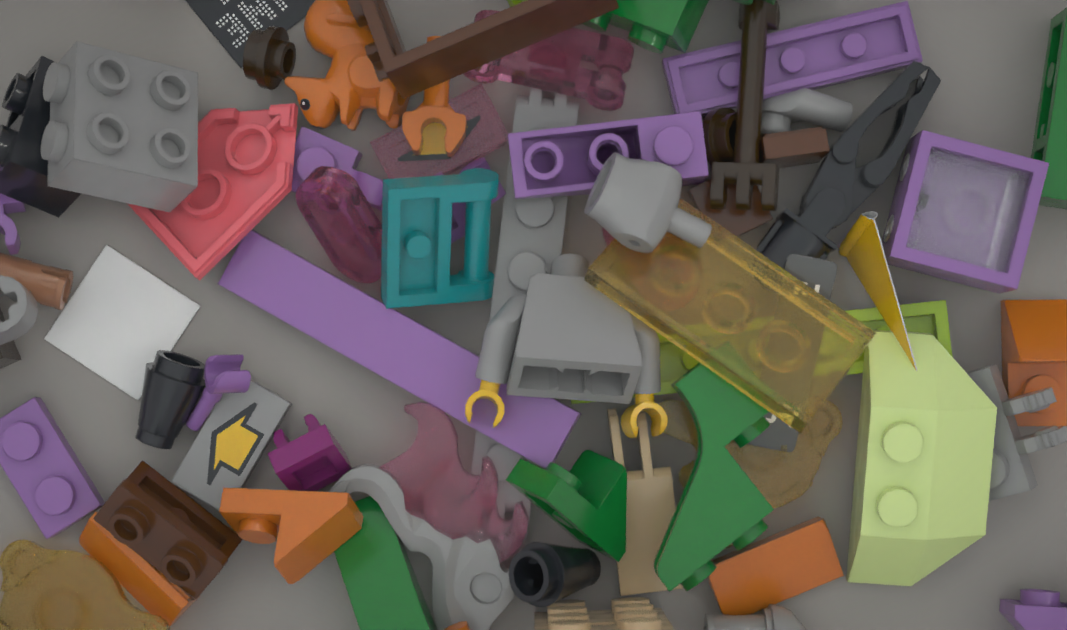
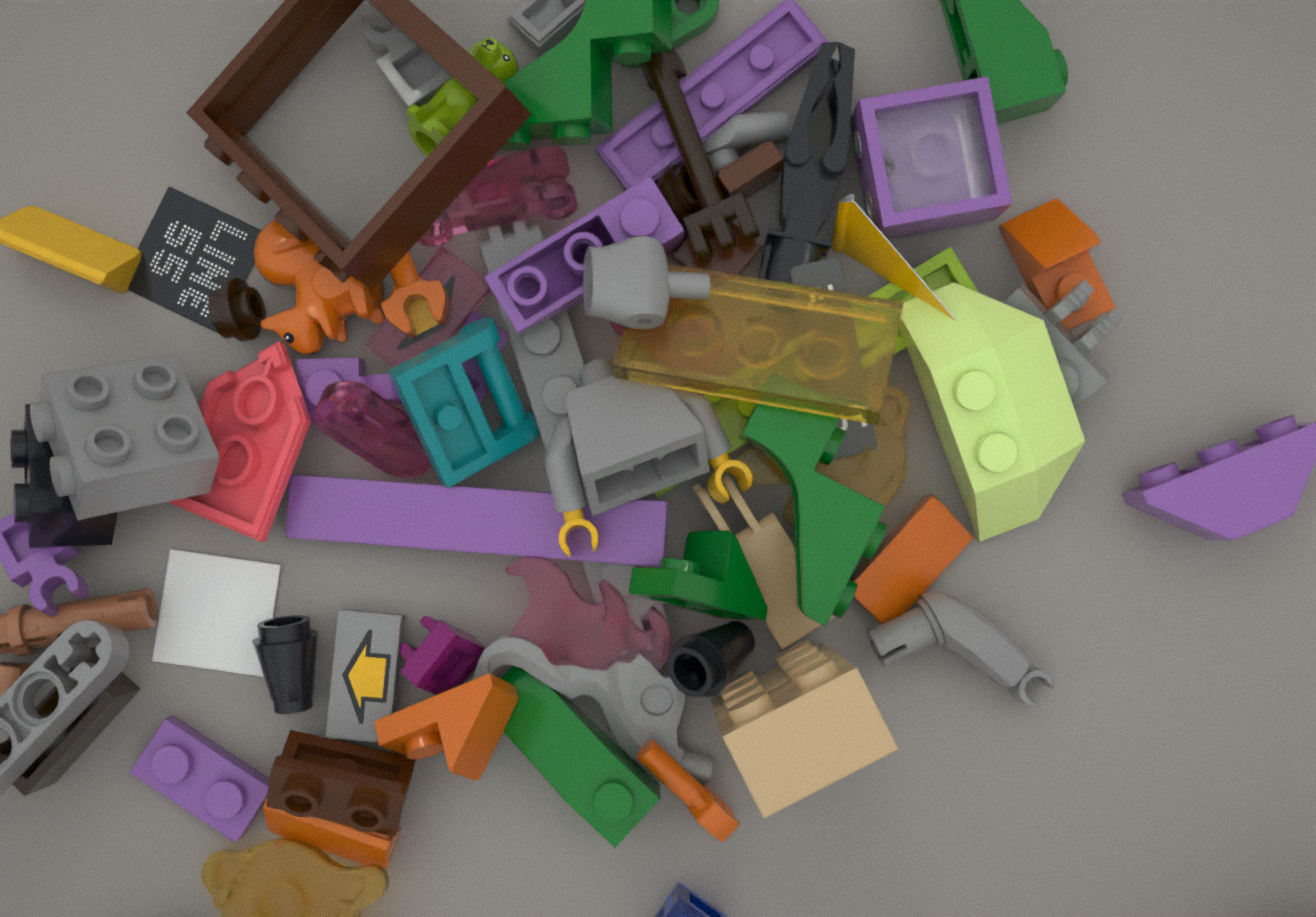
camera: 25 degrees left, 0 degrees up
(221, 376) = (326, 620): medium lavender hand -> none

